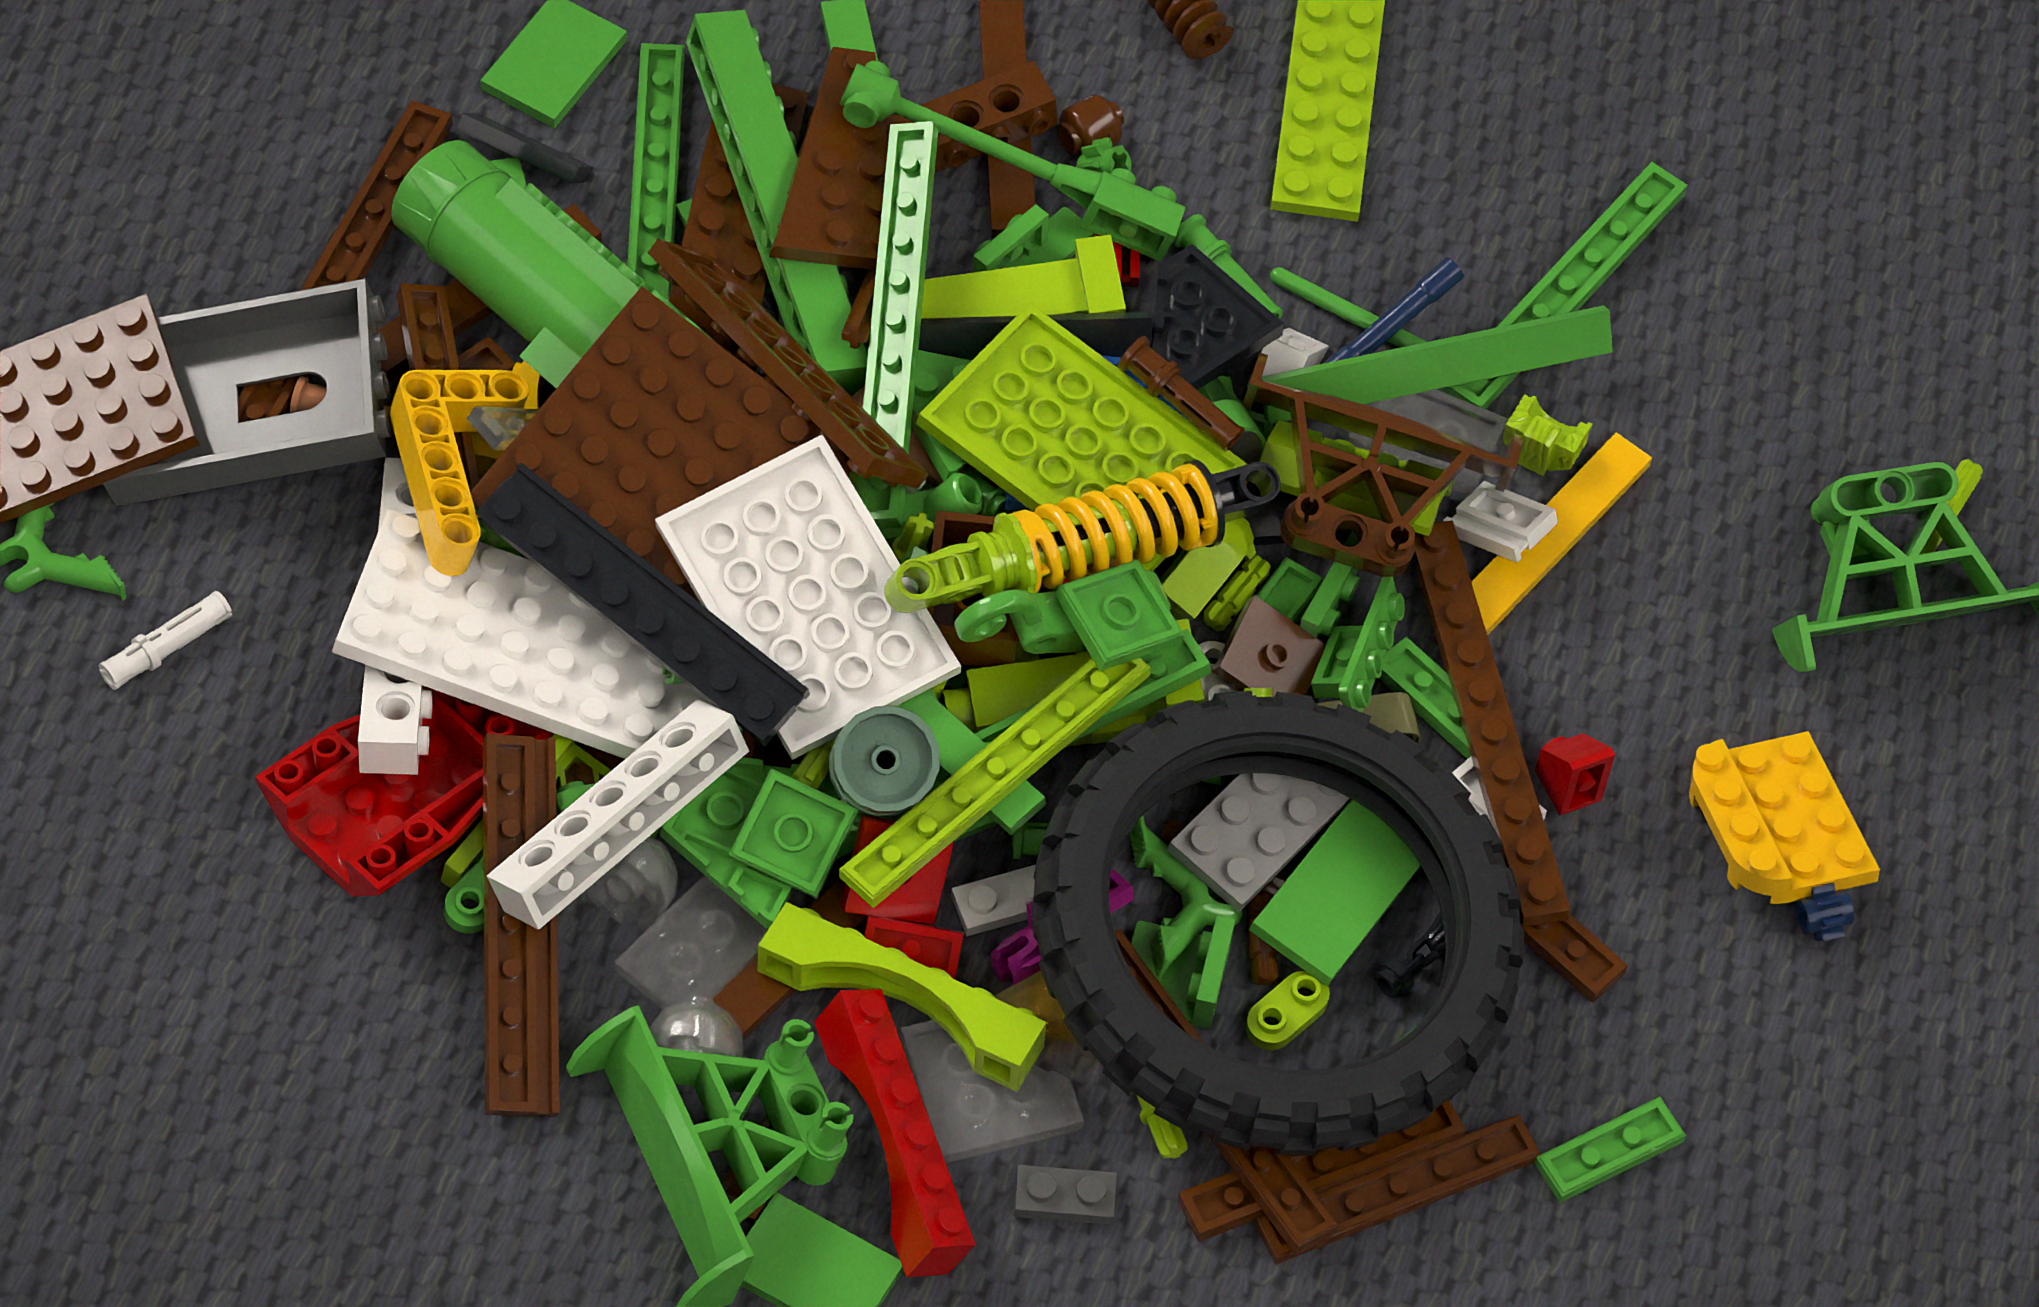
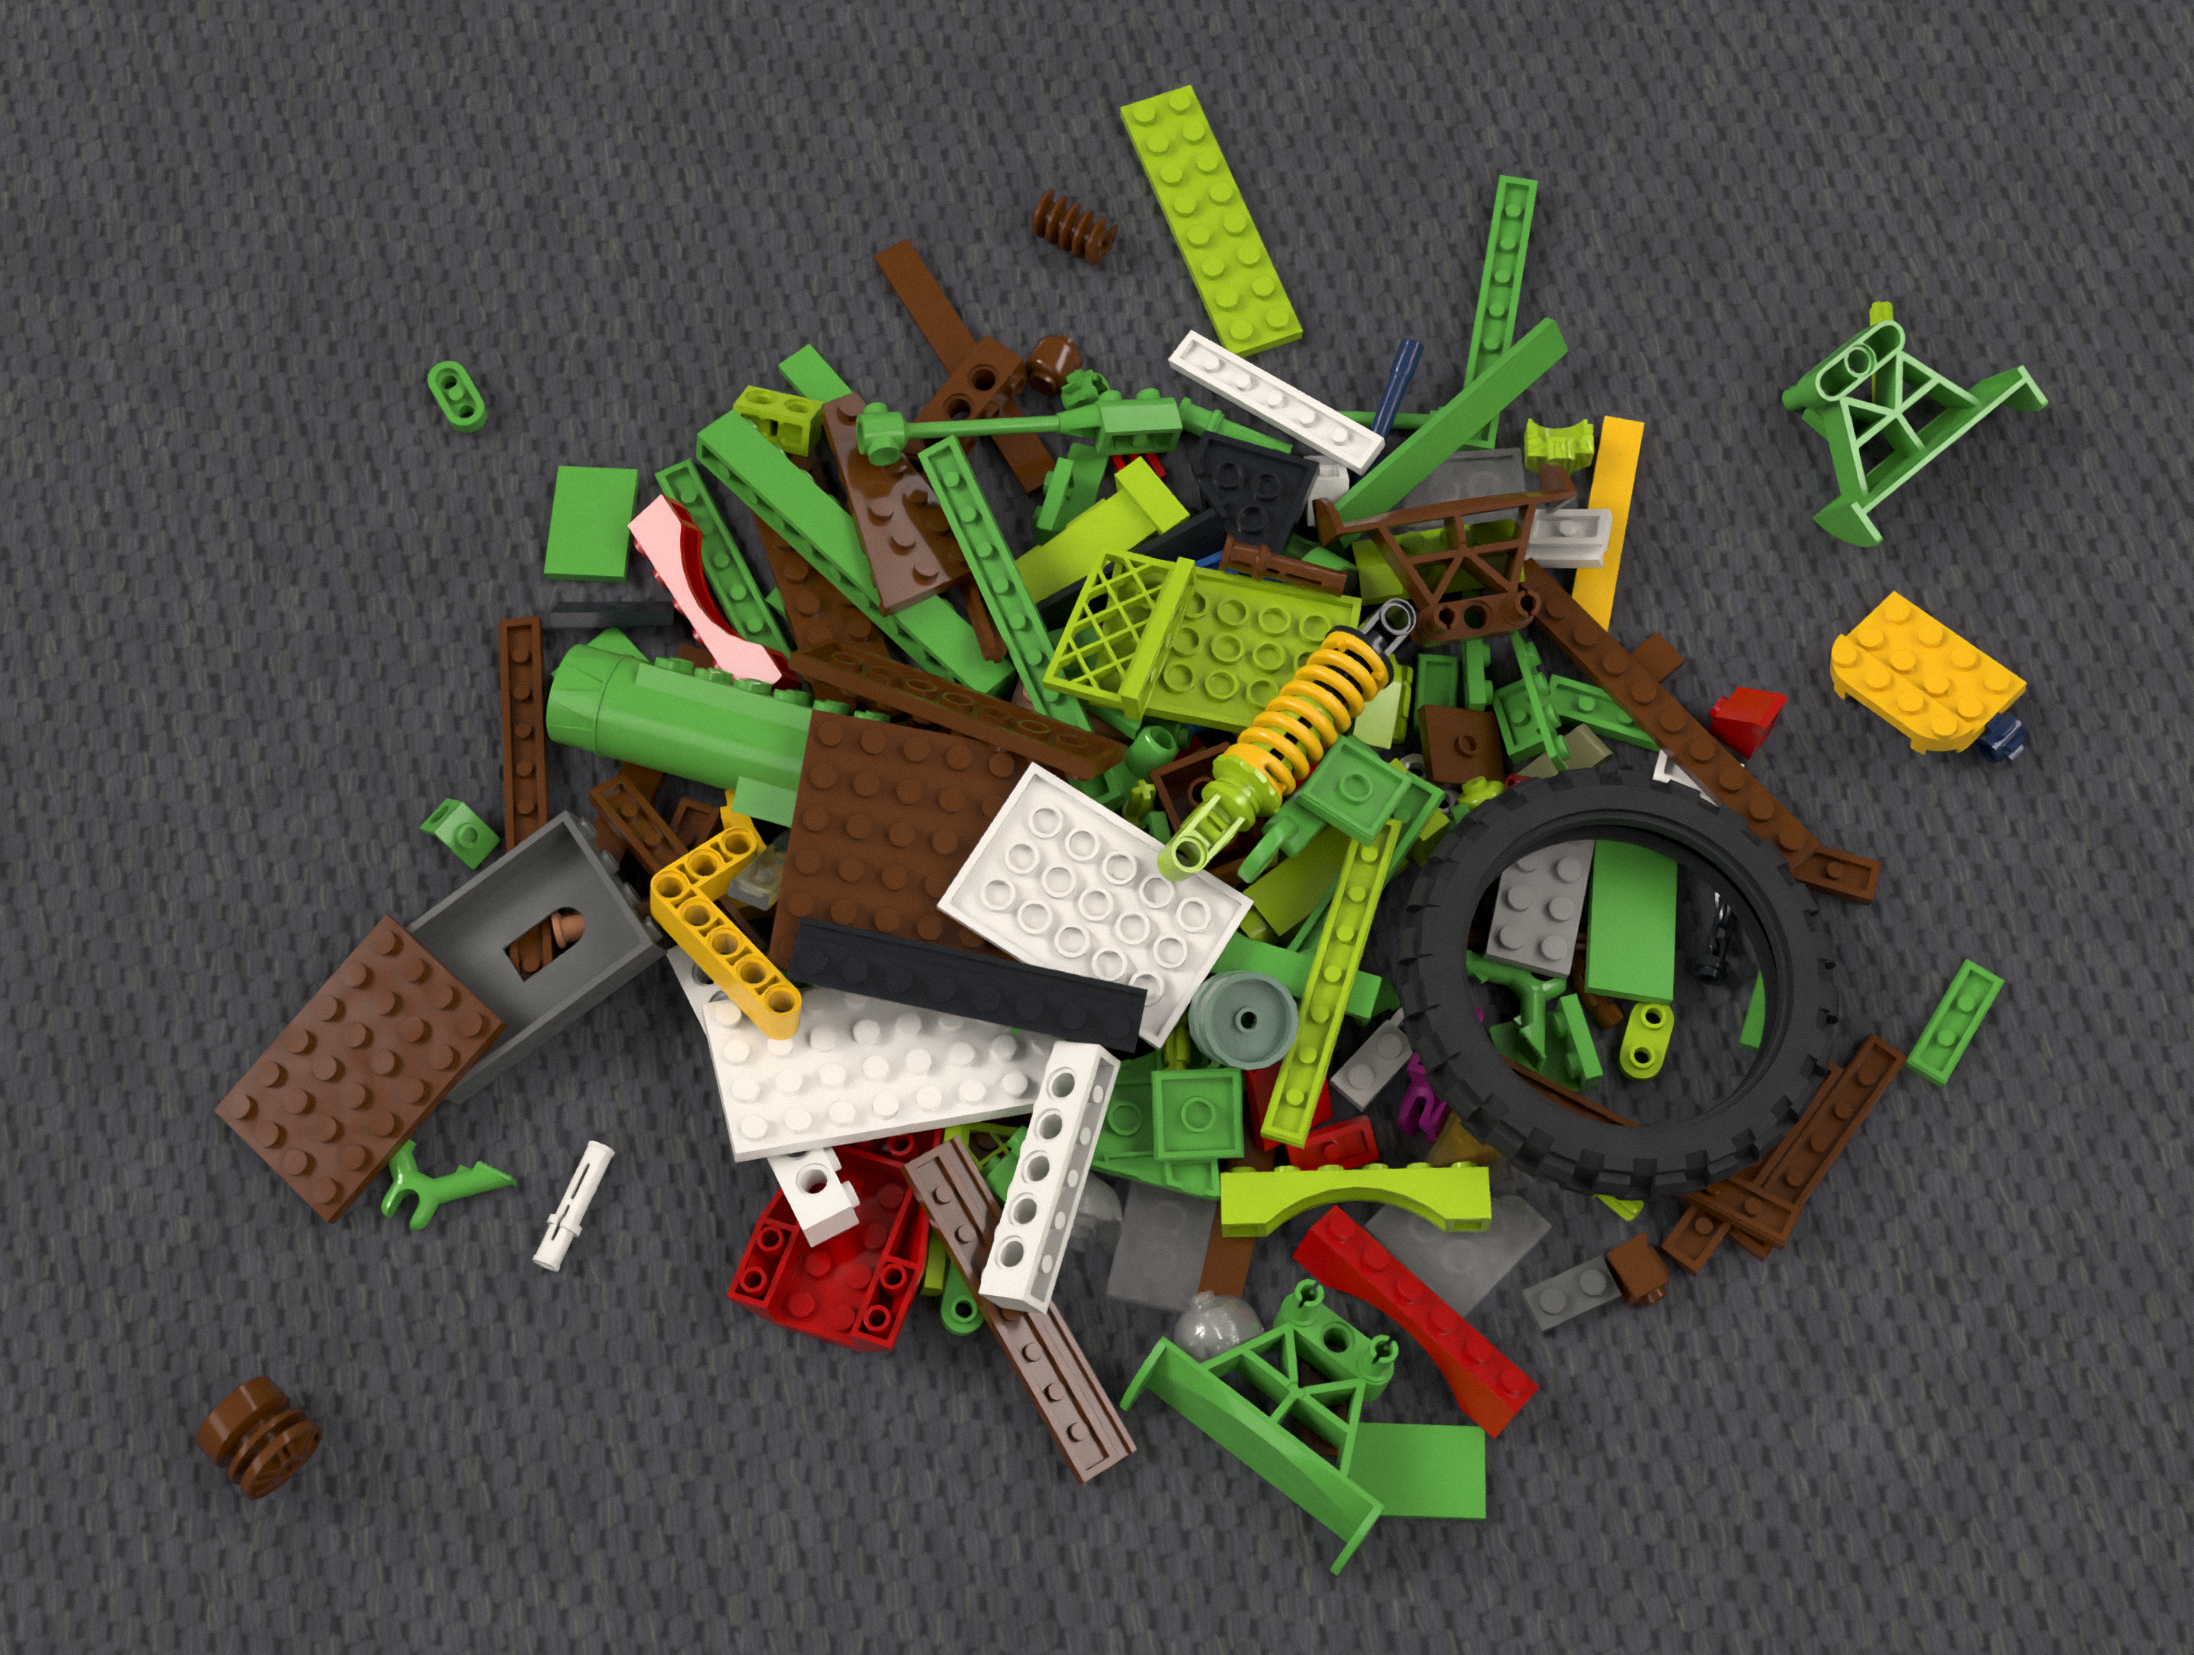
camera: 20 degrees left, 10 degrees up
(262, 267) = (461, 832): none -> bright green bracket
(617, 112) = (674, 546): none -> arch
(790, 48) = (782, 418): none -> lime brick
(1011, 389) = (1152, 647): none -> lime fence
(1142, 1202) = (1638, 1271): none -> reddish brown window
(1287, 261) = (1277, 403): none -> white plate
(1524, 678) = (1658, 657): none -> reddish brown tile

